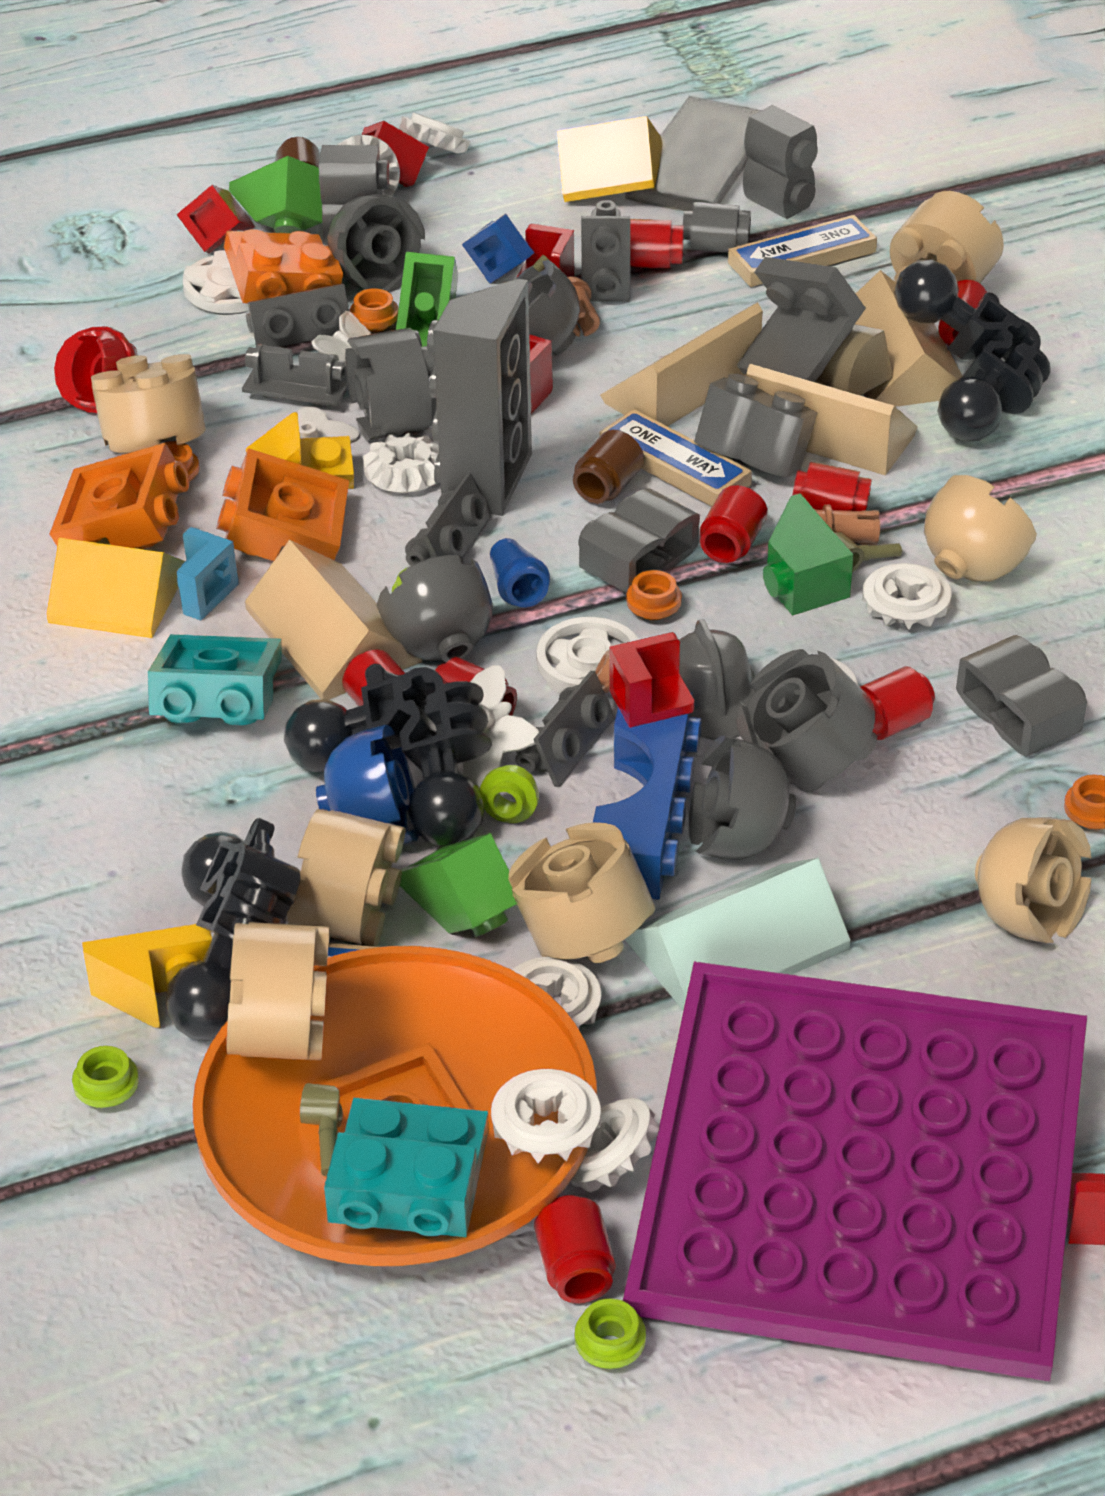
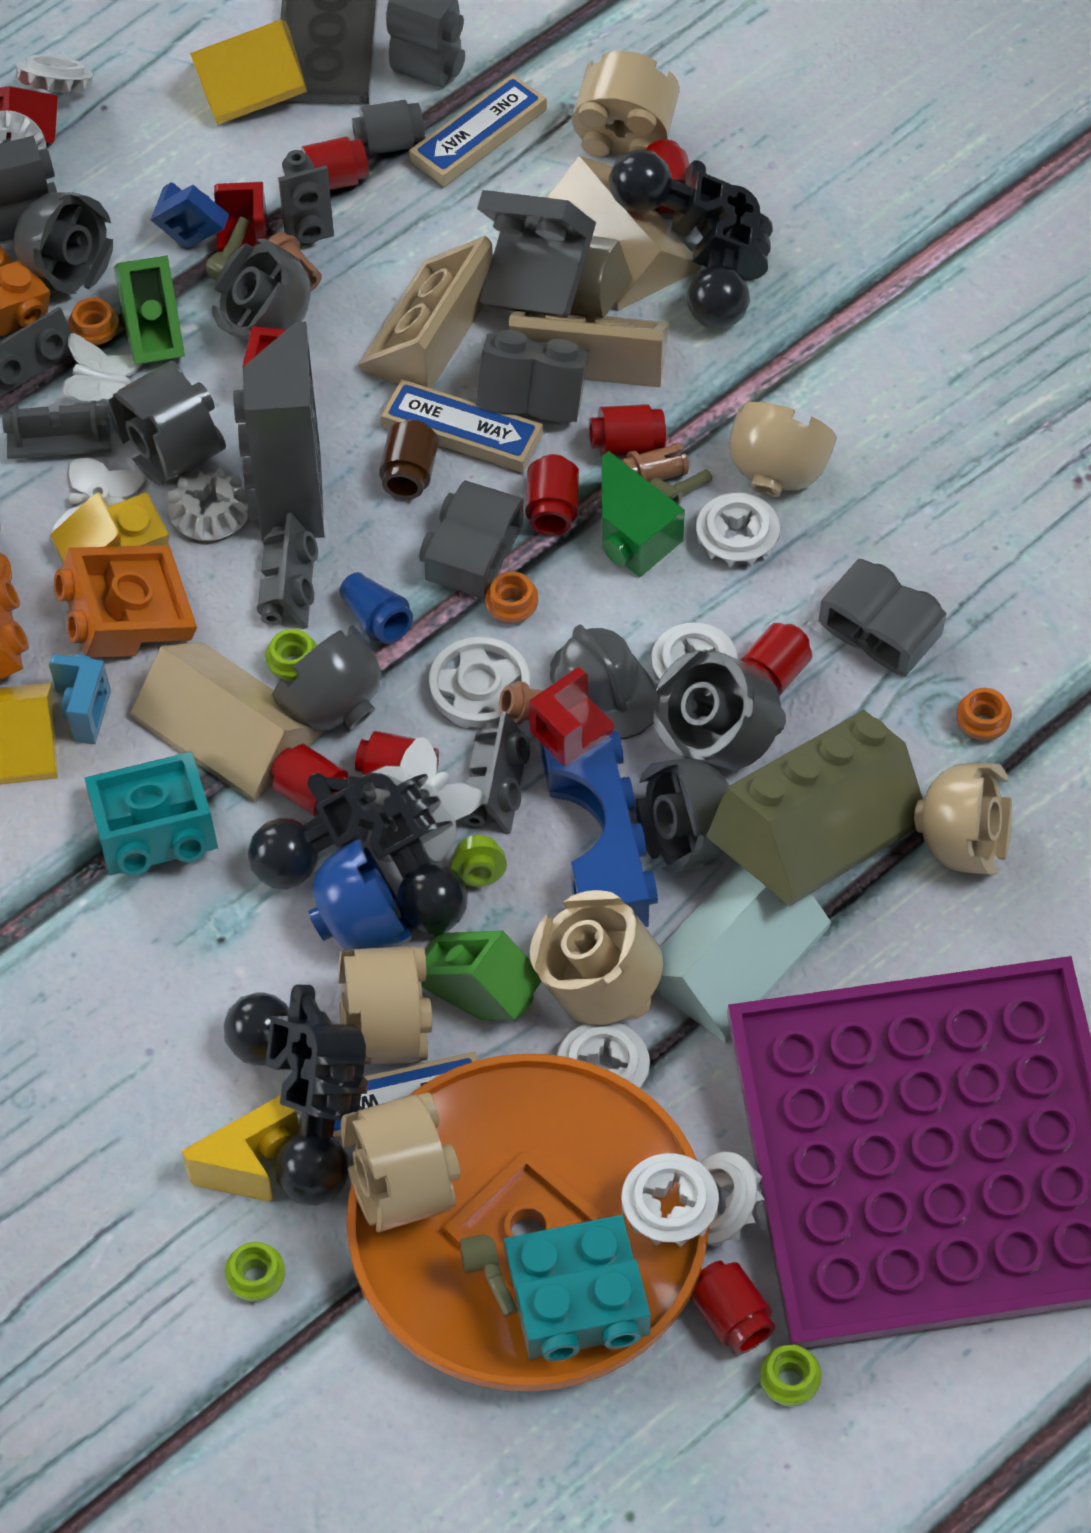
camera: 20 degrees left, 15 degrees up
(870, 817) = (820, 808): none -> olive slope

